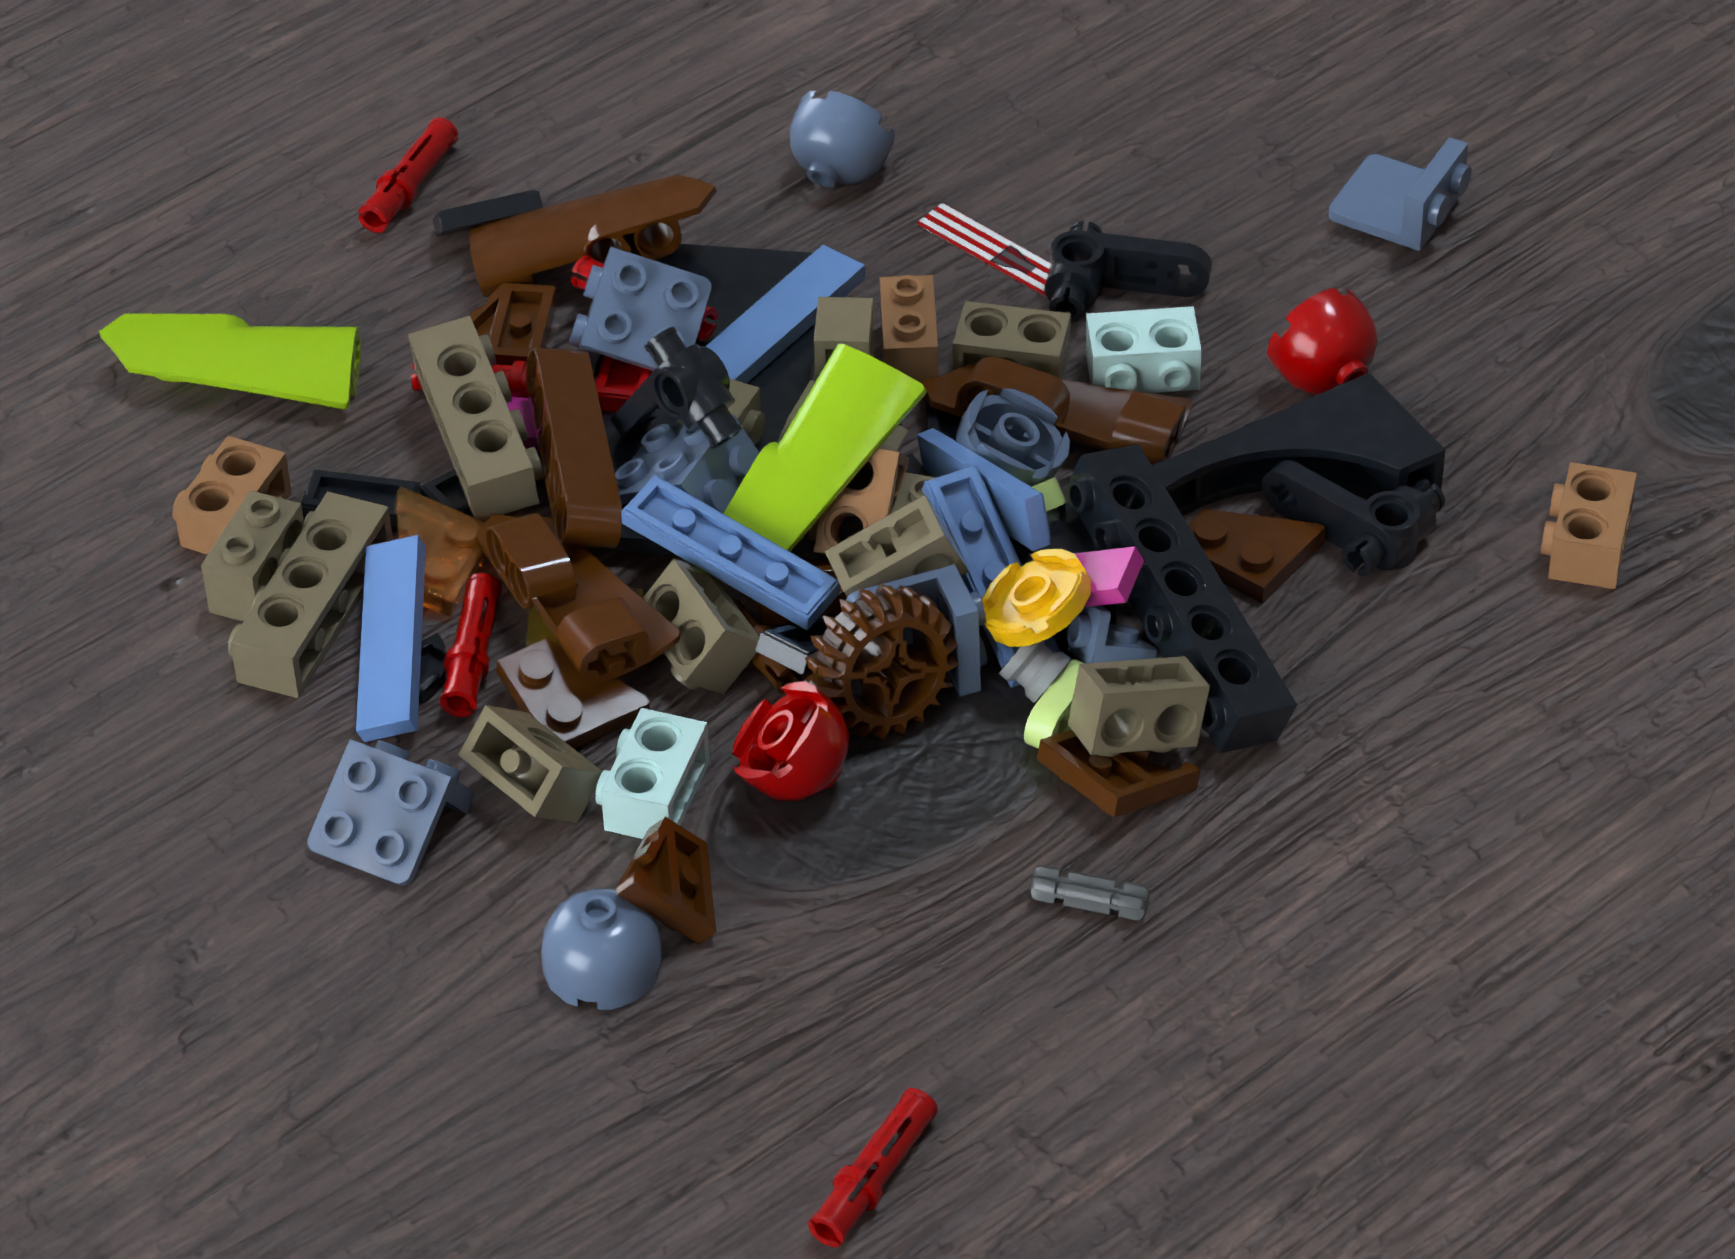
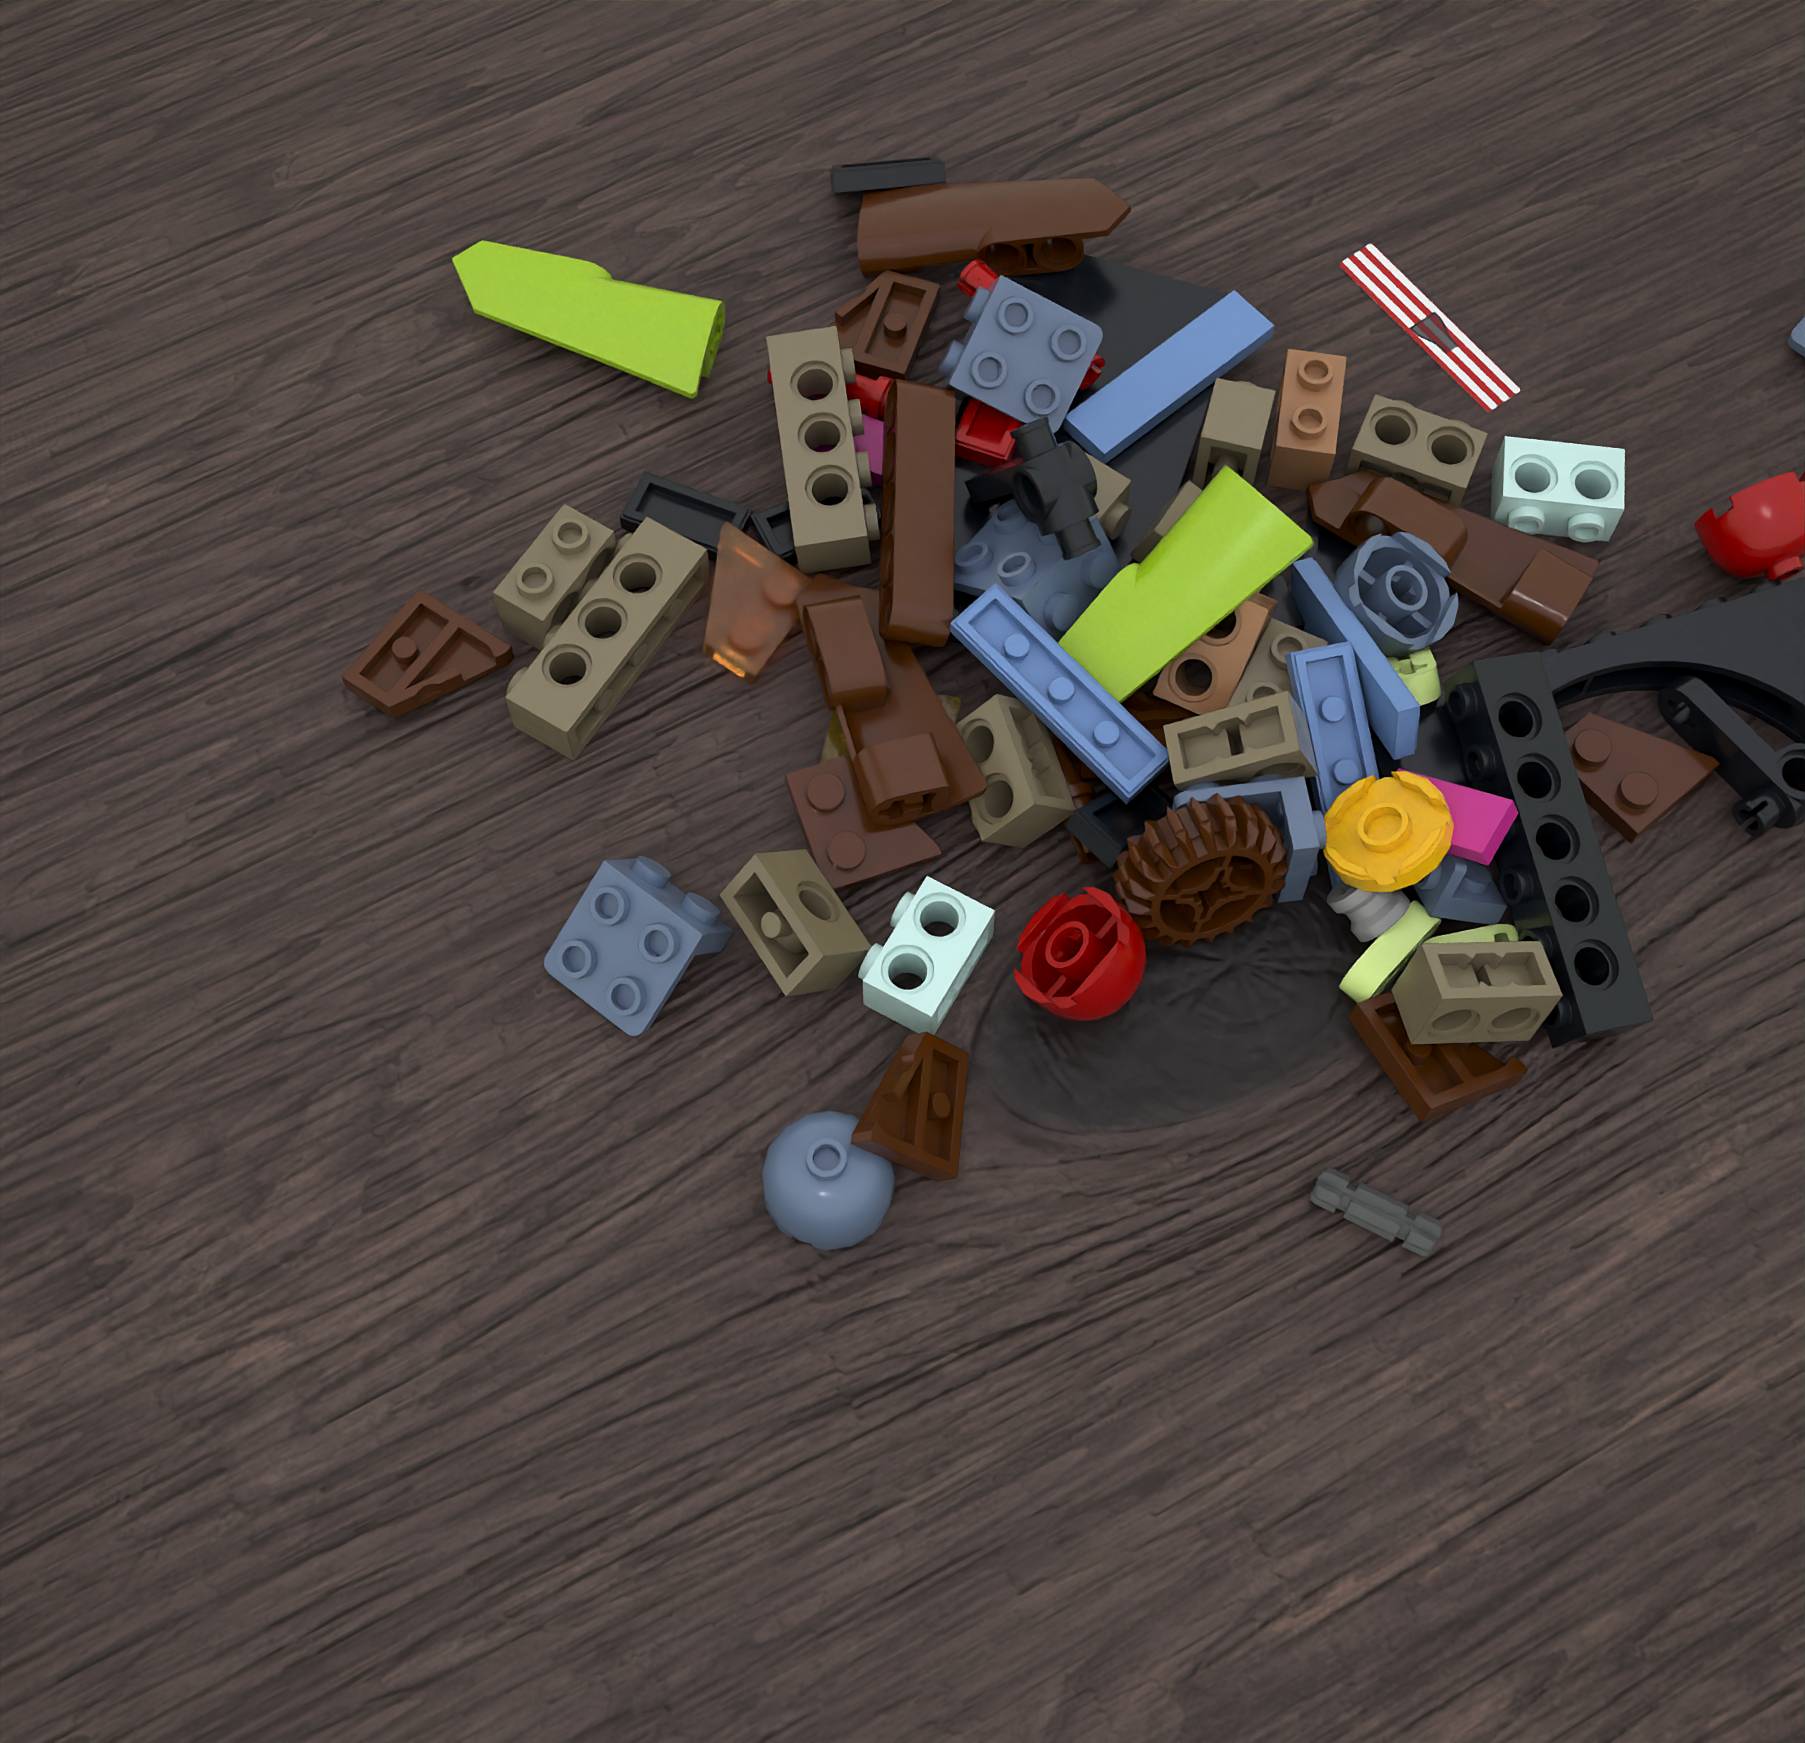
camera: 10 degrees right, 20 degrees up
(143, 636) = (423, 657): none -> reddish brown wing
(222, 487) = (539, 488): medium nougat brick -> none
(391, 638) = (680, 717): medium blue tile -> none
(398, 187) = (801, 121): red pin -> none
(431, 667) = (710, 751): black tile -> none
(468, 659) = (757, 757): red pin -> none
(838, 139) = (1274, 152): sand blue cylinder -> none
(838, 1214) = (1052, 1570): red pin -> none
(1094, 260) = (1521, 356): black piece -> none

